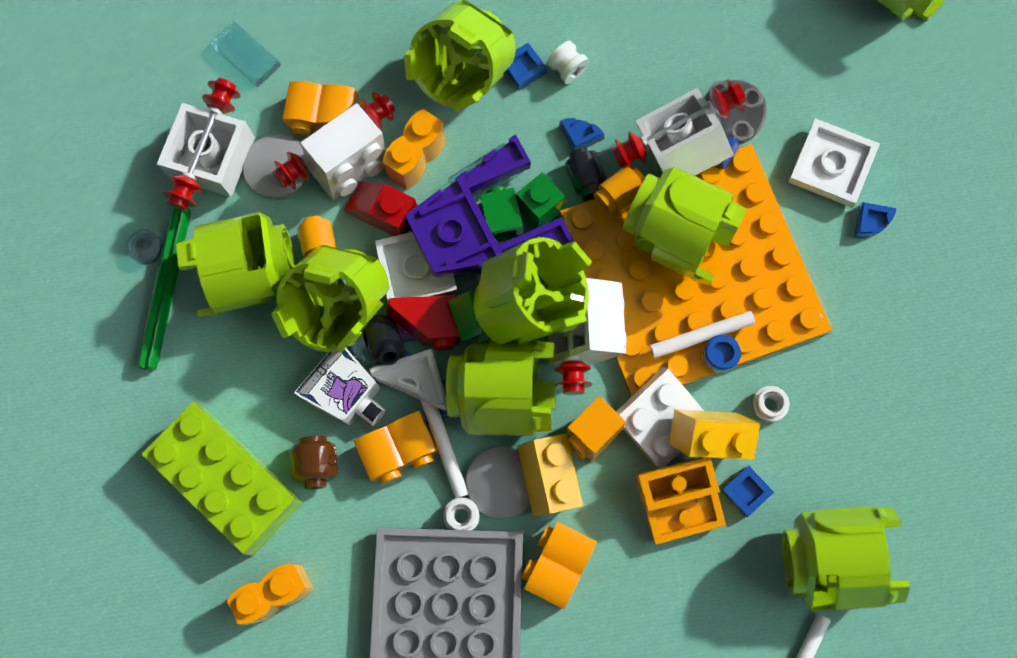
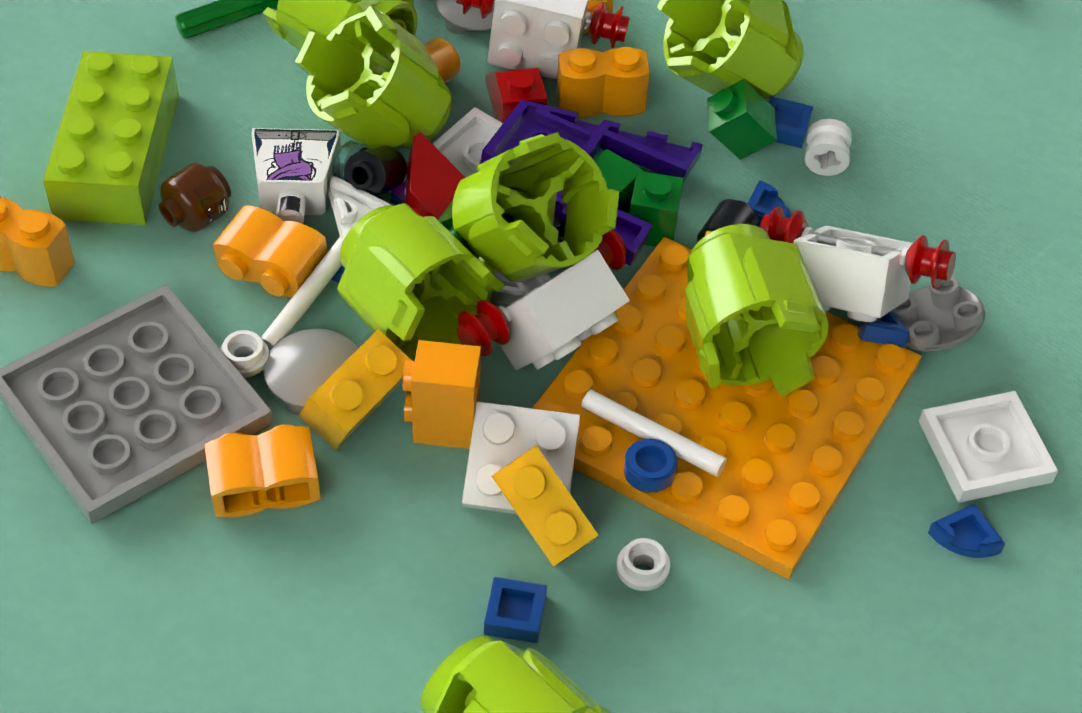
camera: 40 degrees right, 25 degrees down
(514, 95) = (741, 119): none -> green brick
(681, 499) = (443, 532): light orange brick -> none

